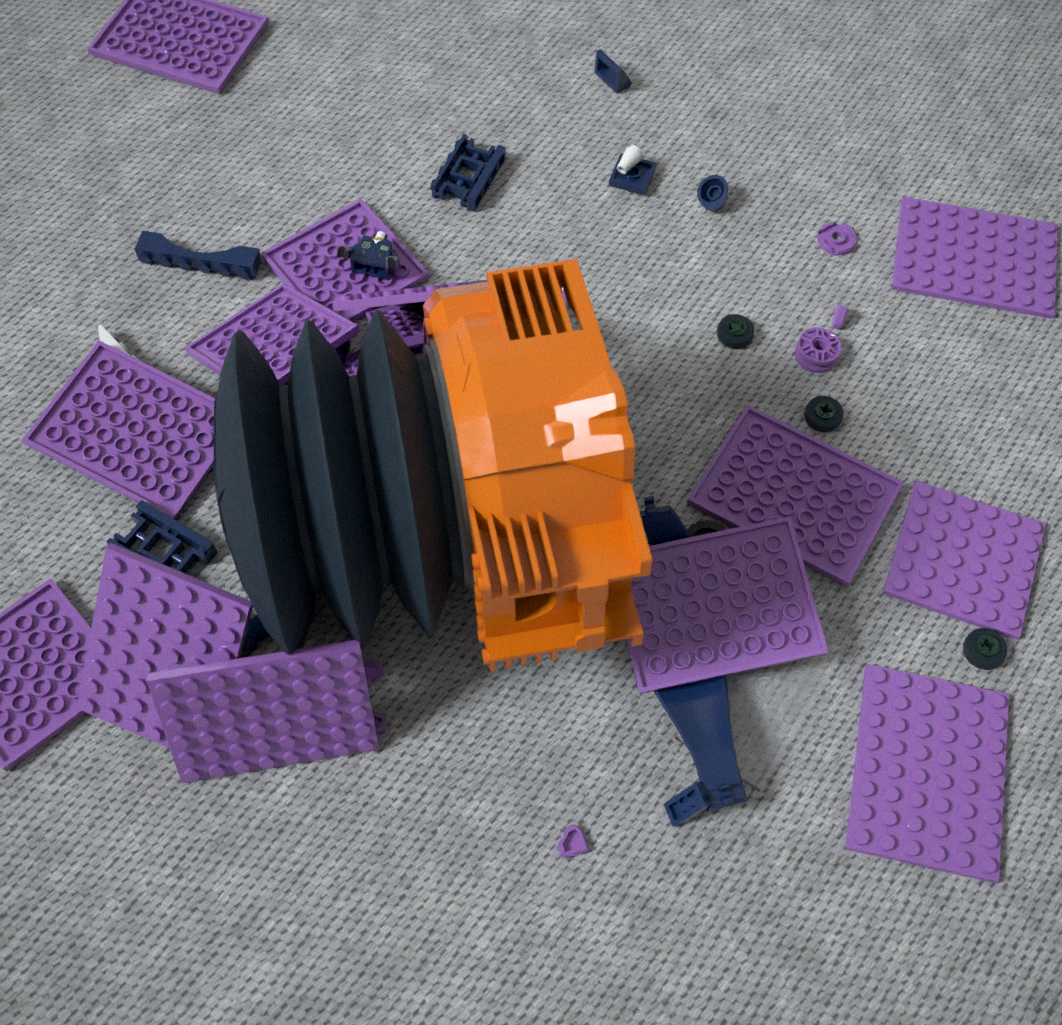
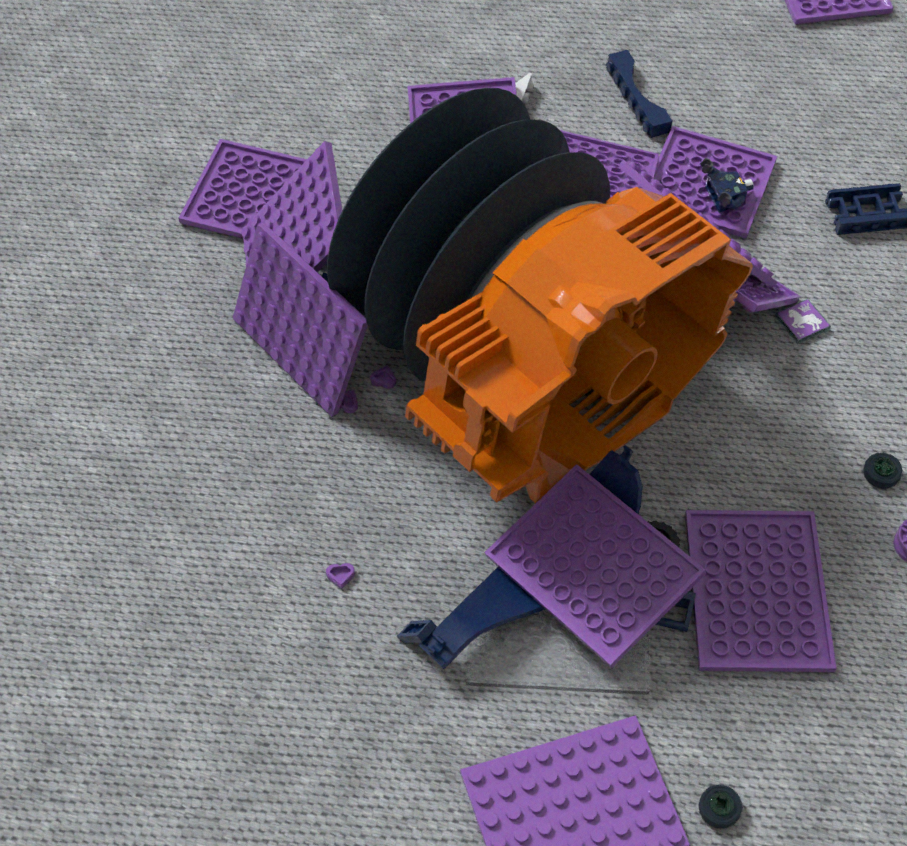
camera: 60 degrees right, 5 degrees down
(823, 414) = (850, 581): black wheel -> none
(965, 559) = (802, 757): medium lavender plate -> none

